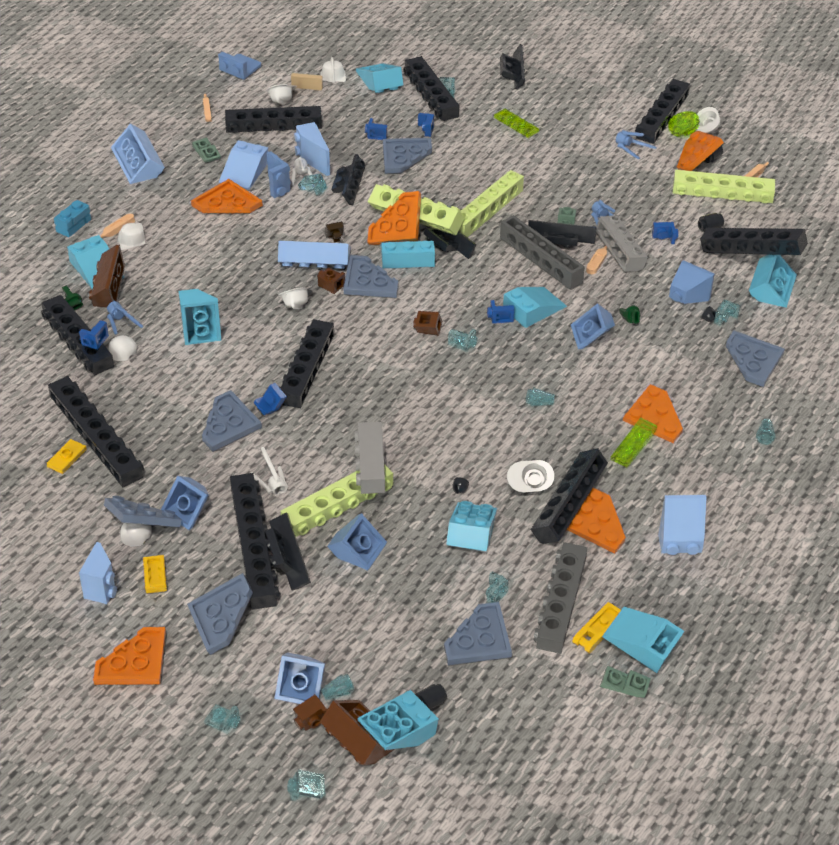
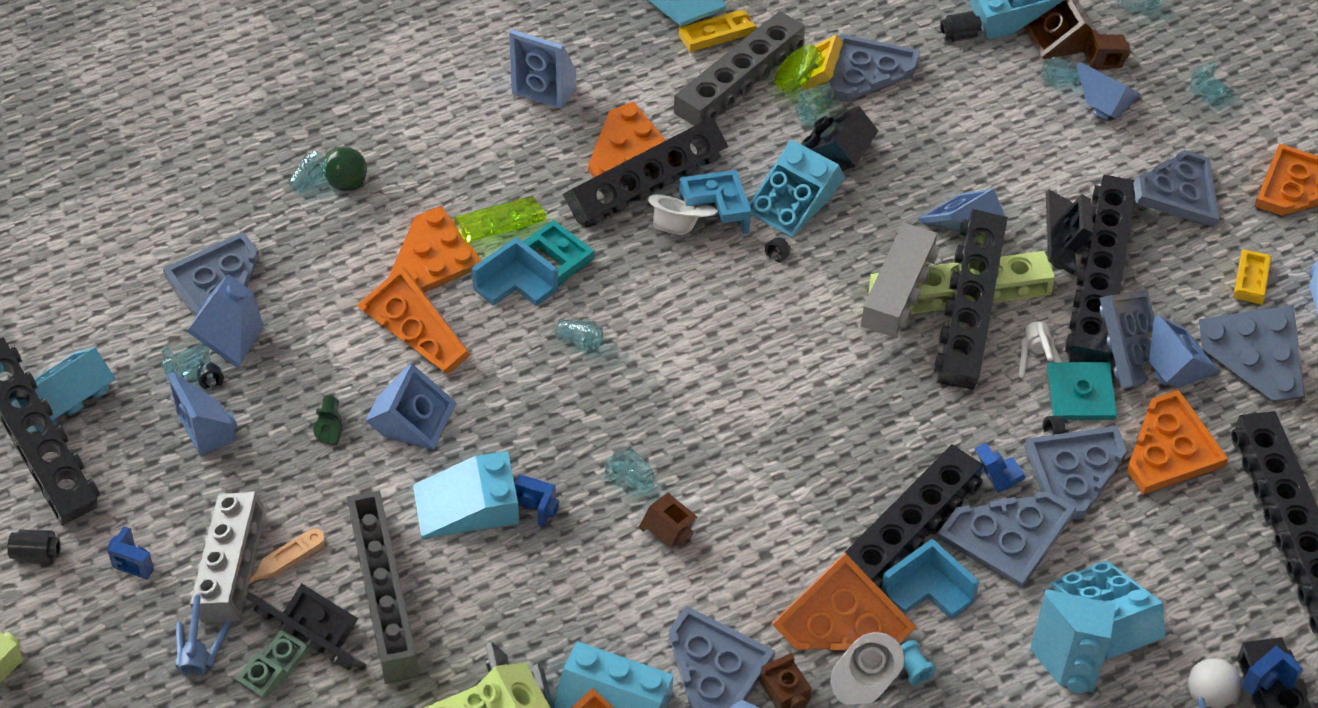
camera: 155 degrees left, 5 degrees up
(176, 451) = (1172, 445): none -> orange plate
(186, 359) = (1137, 611): none -> medium azure slope
(223, 489) = (1128, 322): none -> sand blue plate
(240, 462) = (1081, 390): none -> teal plate
(247, 439) = (1056, 423): none -> black hinge
(251, 372) = (1009, 533): none -> sand blue plate
(274, 307) = (915, 663): none -> medium azure bush
(282, 347) = (932, 575): none -> dark azure panel
(320, 309) = (840, 610): none -> orange plate
(325, 472) = (989, 231): none -> black brick
(464, 566) = (842, 137): none -> black slope
(508, 612) = (830, 54): none -> yellow bracket
(511, 496) = (723, 190): none -> dark azure panel
(521, 602) = (796, 68): none -> clear neon green tile
(586, 437) = (563, 248): none -> teal plate
(598, 419) = (512, 269): none -> dark azure panel
(629, 370) = (413, 318): none -> orange wing
(720, 327) = (228, 321): none -> medium blue slope
(745, 435) = (345, 168): none -> dark green hair

